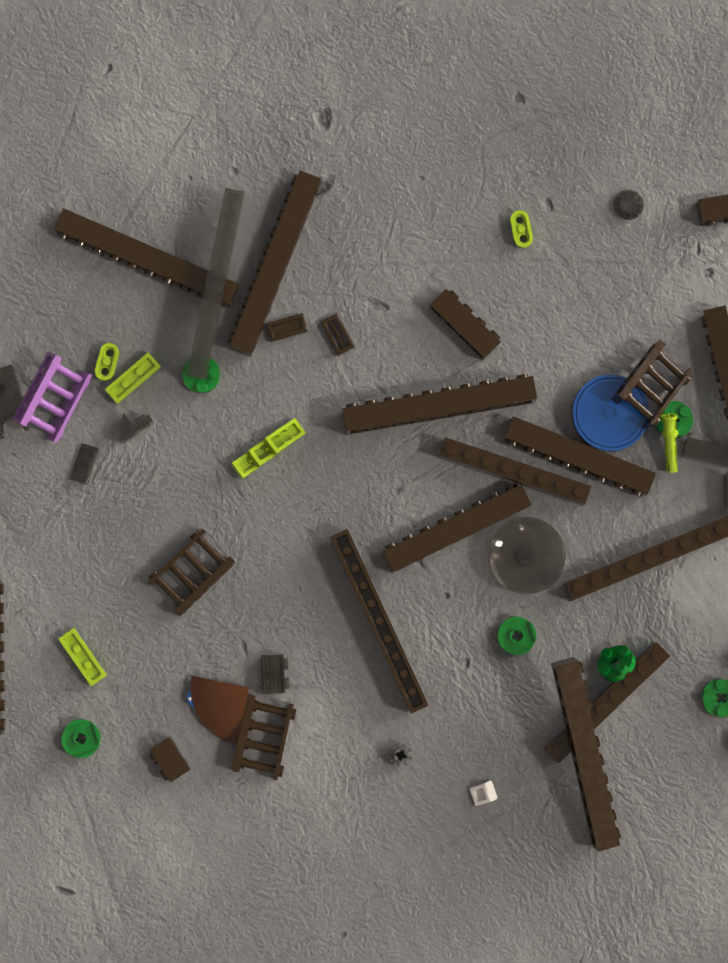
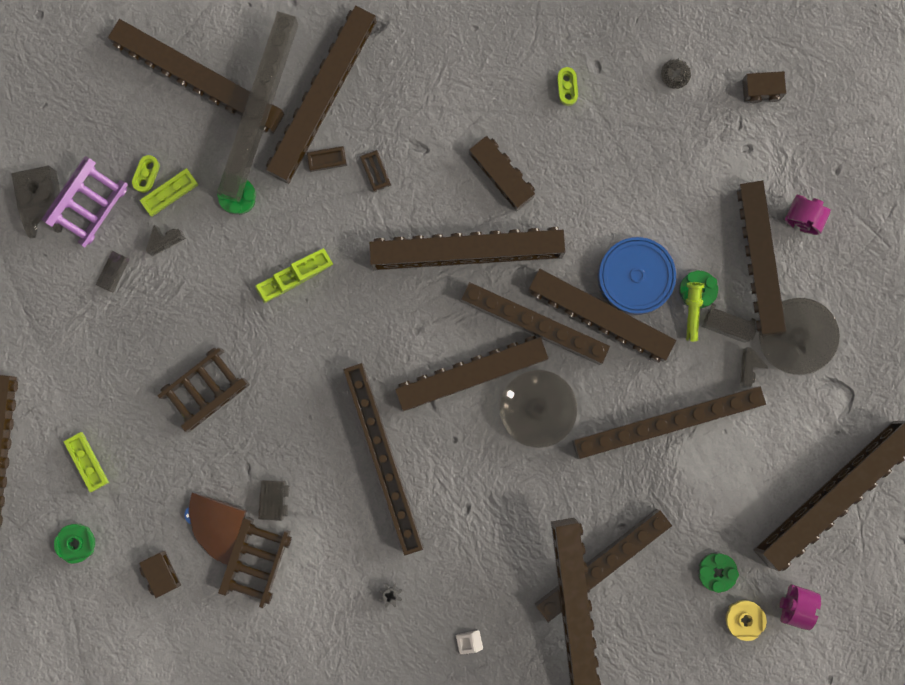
camera: 15 degrees right, 0 degrees up
(511, 645) = (511, 495): green plate -> none
(609, 657) = (611, 518): green plate -> none
(635, 381) = (665, 245): dark brown fence -> none

